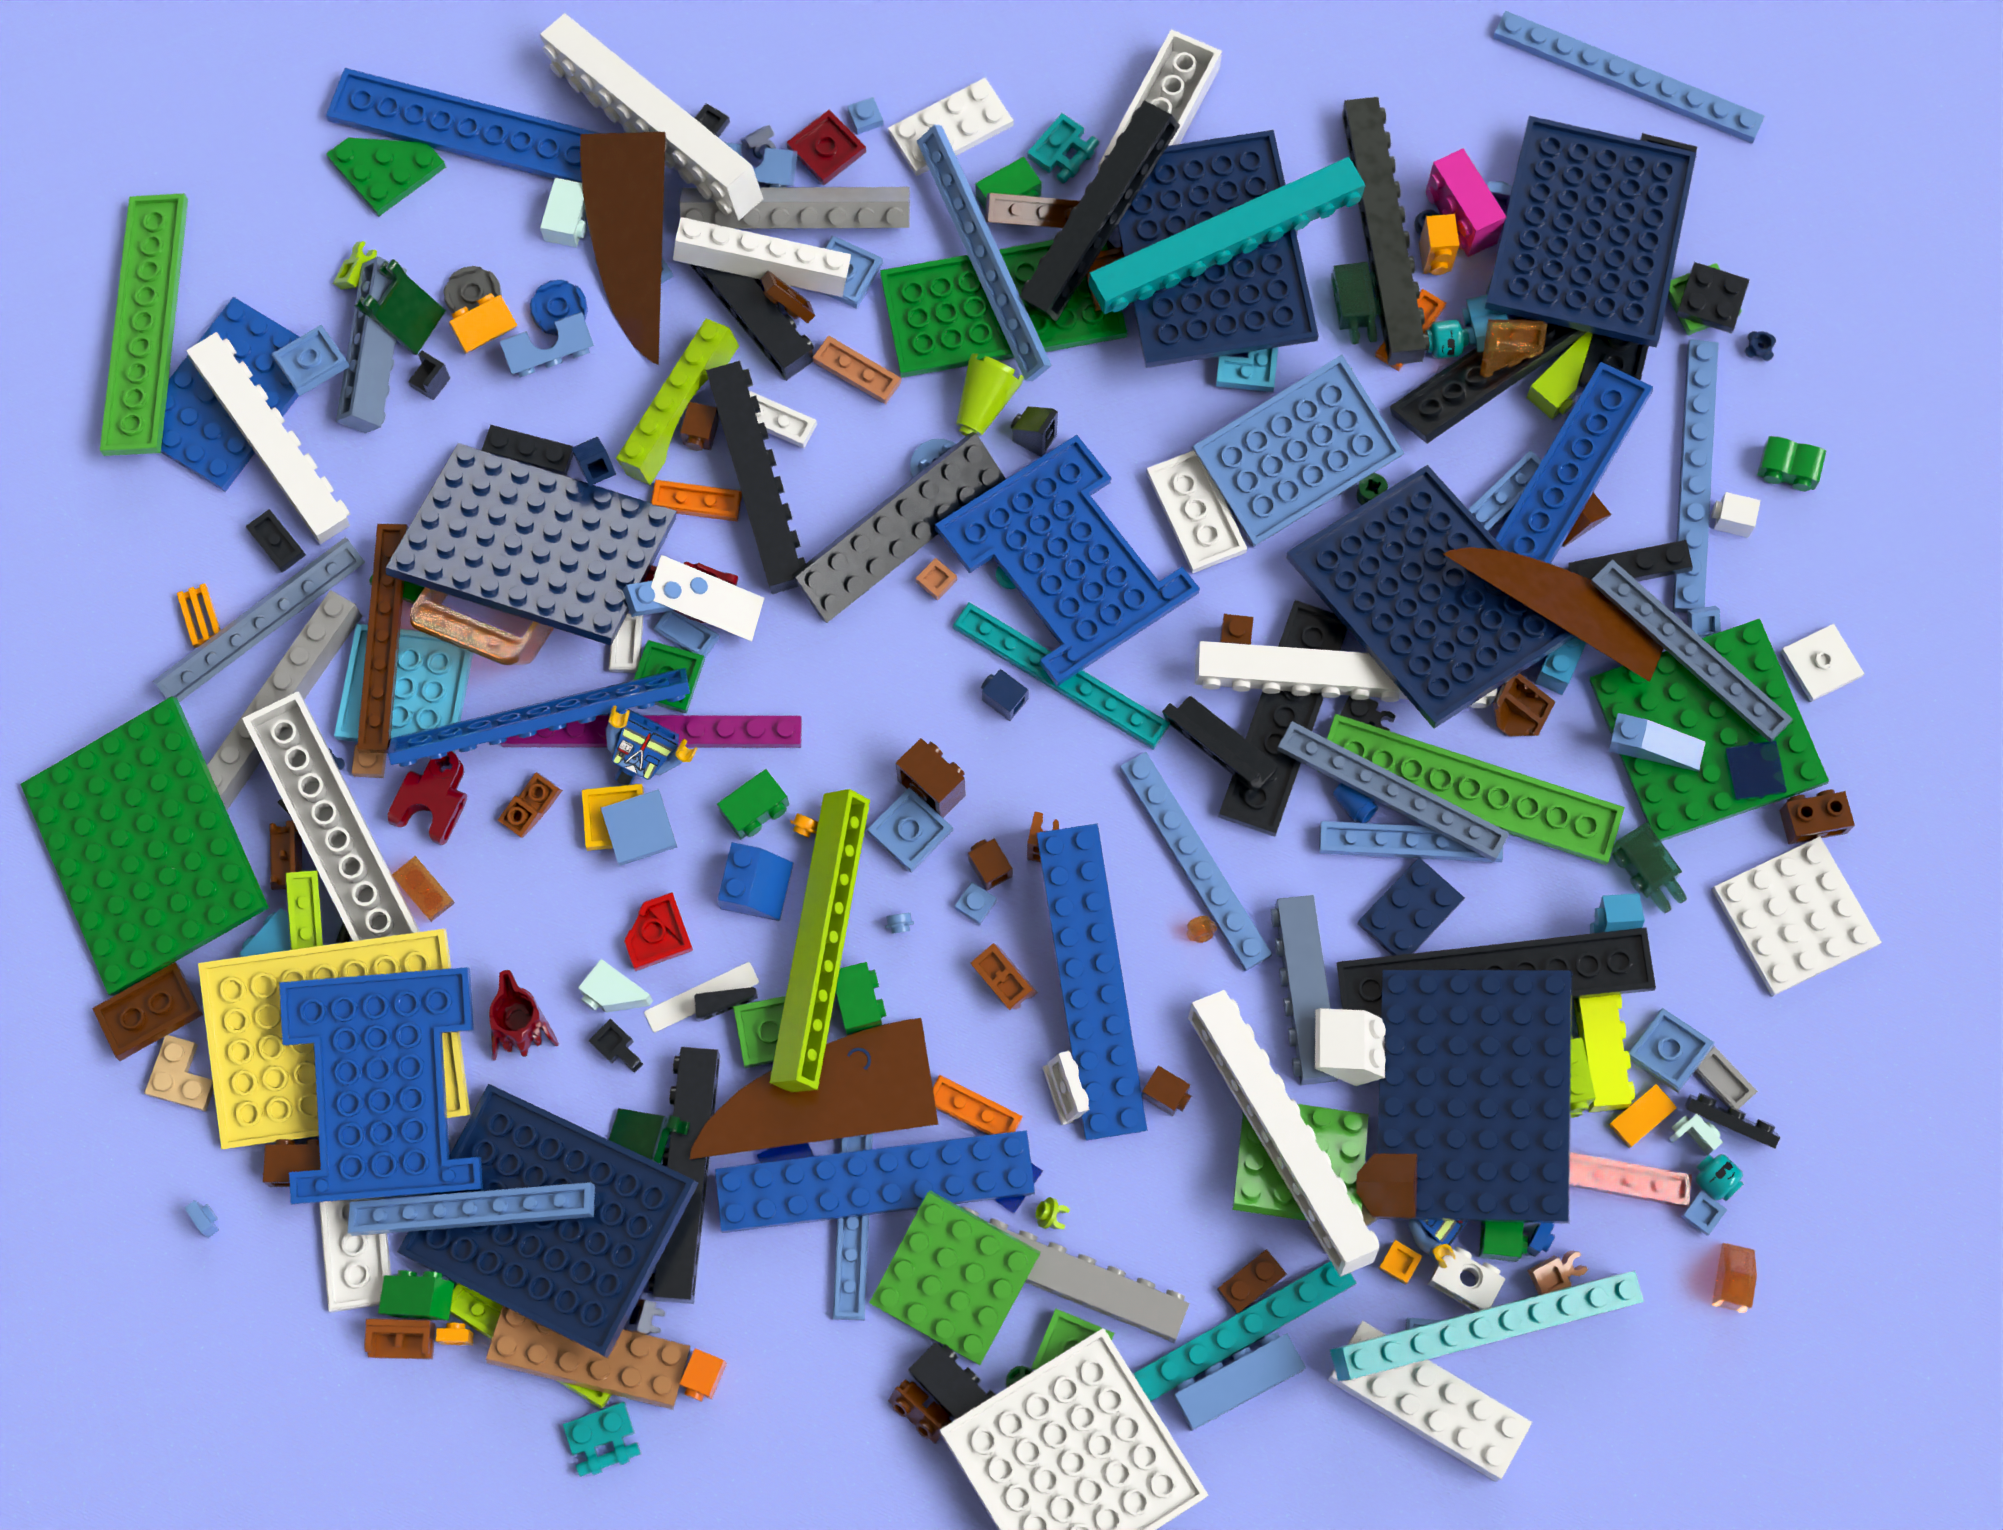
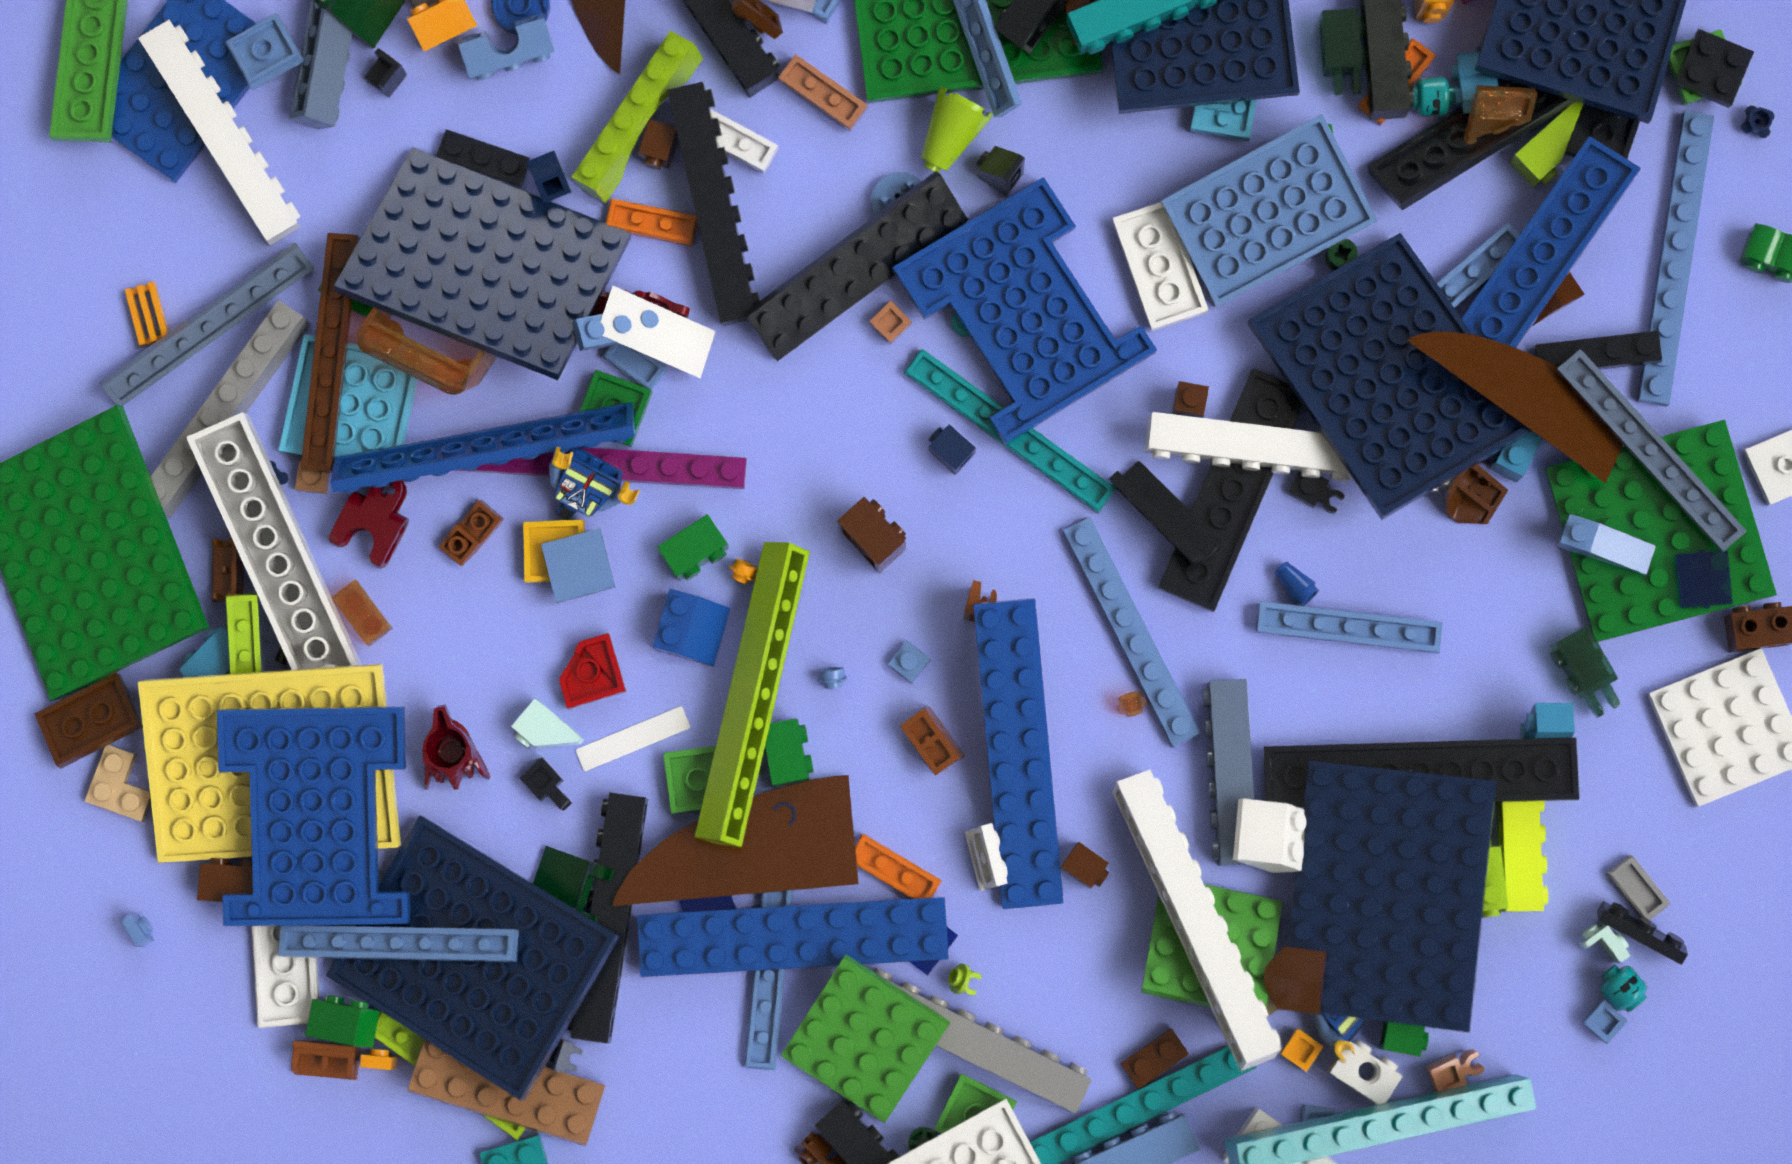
camera: 10 degrees right, 10 degrees up
(275, 540) = (225, 240): black plate -> none
(626, 647) = (575, 376): white tile -> none
(702, 1375) = (615, 1115): orange brick -> none
(715, 1003) = (645, 748): black slope -> none
(910, 830) = (848, 583): medium blue plate -> none
(989, 863) = (925, 623): reddish brown brick -> none
(1393, 791) = (1335, 577): sand blue plate -> none
(1411, 910) = (1343, 697): dark blue plate -> none
(1495, 794) = (1414, 577): bright green plate -> none
(1541, 1239) = (1440, 1039): blue plate -> none
(1630, 1180) = (1535, 985): clear red plate -> none
(1642, 1116) = (1554, 920): light orange tile -> none
(1670, 1050) = (1588, 856): medium blue tile -> none
(1704, 621) = (1668, 417): medium blue plate -> none
(1735, 1278) = (1629, 1087): clear orange slope -> none
(1736, 514) = (1712, 304): white brick -> none

